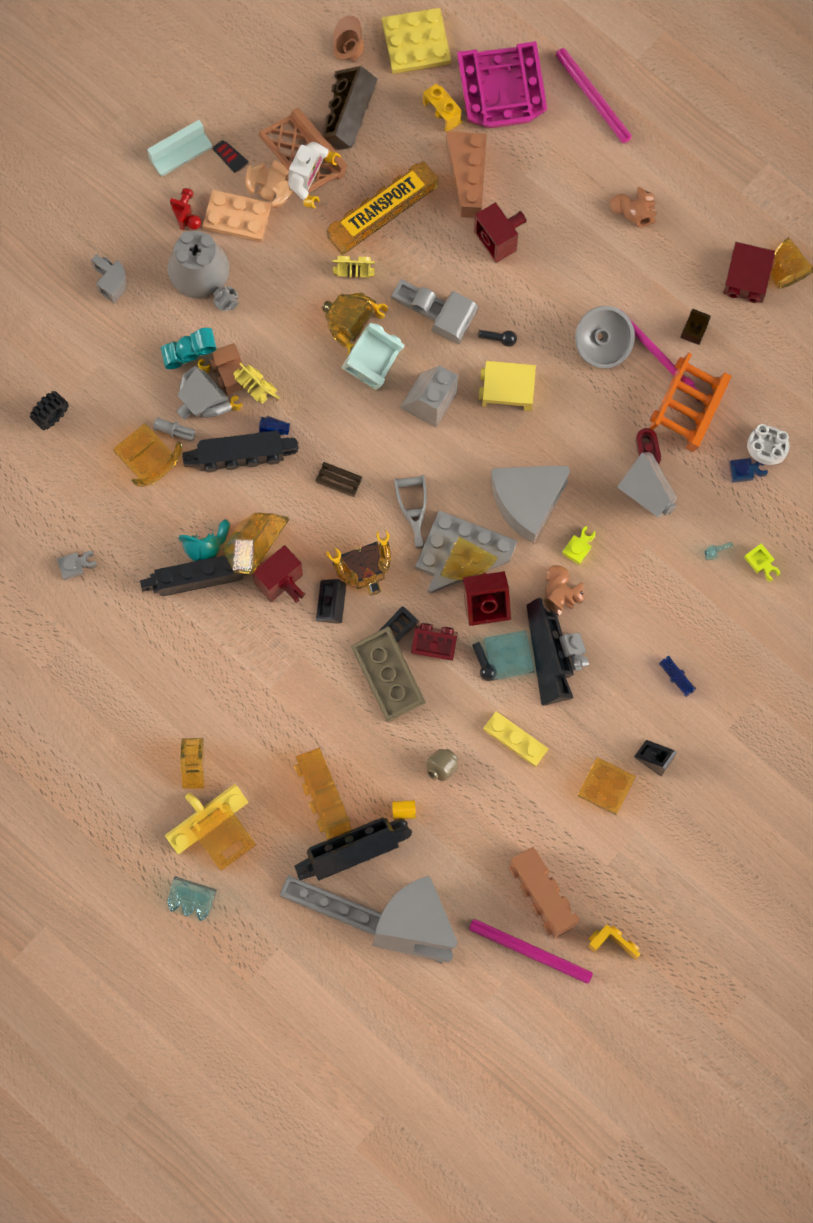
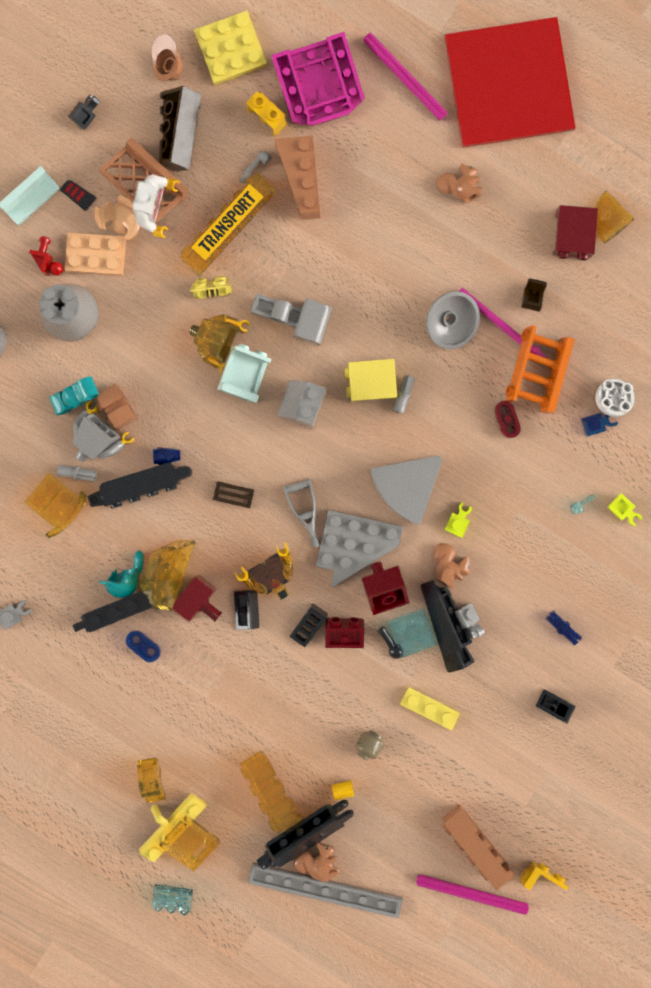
camera: 10 degrees left, 15 degrees up
(211, 620) = (143, 646): none -> clear blue plate
(226, 298) = (99, 339): light grey gear -> none
(252, 77) = (82, 113): none -> black plate
(252, 379) = (140, 413): light yellow hinge -> none
(364, 889) = (319, 867): none -> nougat animal
(388, 674) = (308, 670): dark tan tile -> none
(416, 923) = (370, 896): light grey piece -> none
(430, 148) = (263, 157): none -> light grey piece
(467, 560) = (361, 555): clear yellow brick -> none
(497, 231) = (339, 232): dark red brick -> none
(507, 338) = (363, 332): black bar -> none
(540, 406) = (403, 394): none -> light grey axle
(606, 786) = (516, 738): clear yellow plate -> none
(649, 486) = (515, 461): light grey slope -> none
(702, 118) = (510, 82): none -> red tile

